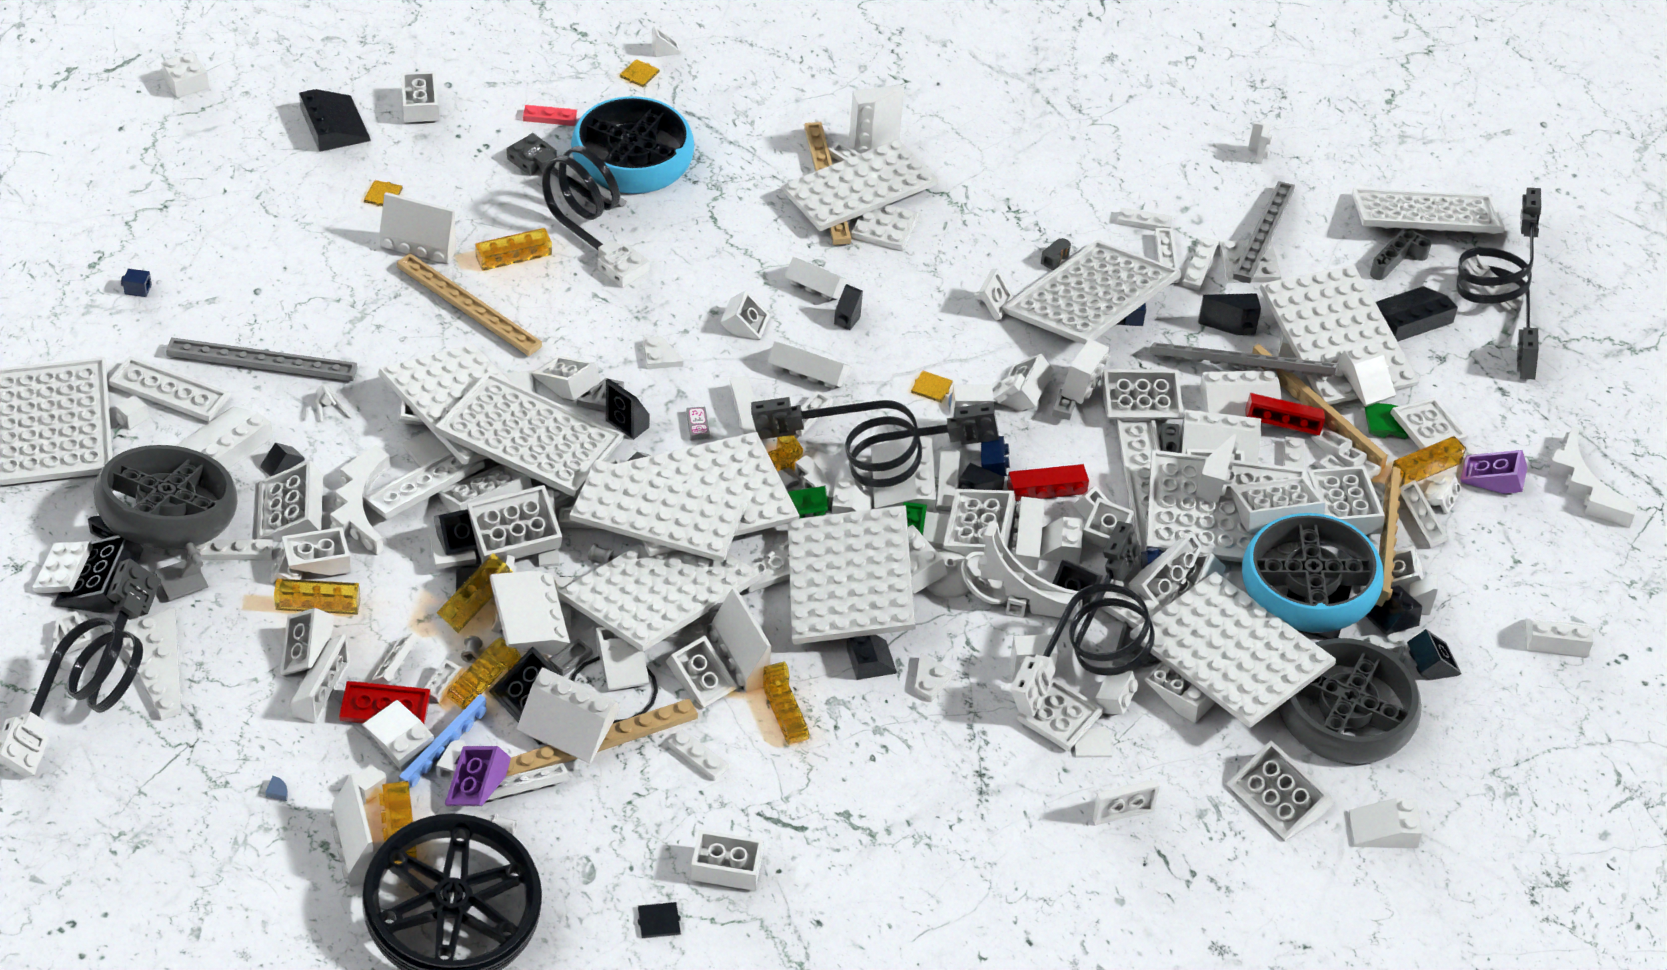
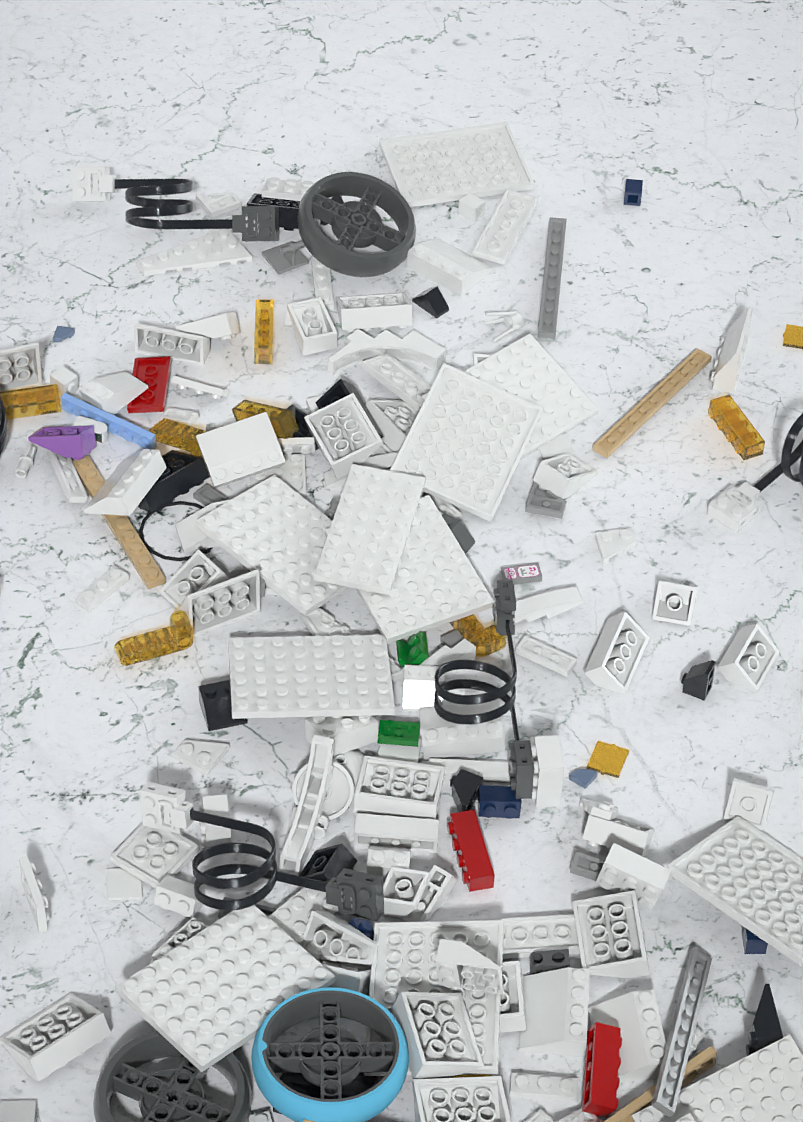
camera: 90 degrees right, 0 degrees up
(625, 411) = (515, 508): black slope -> none

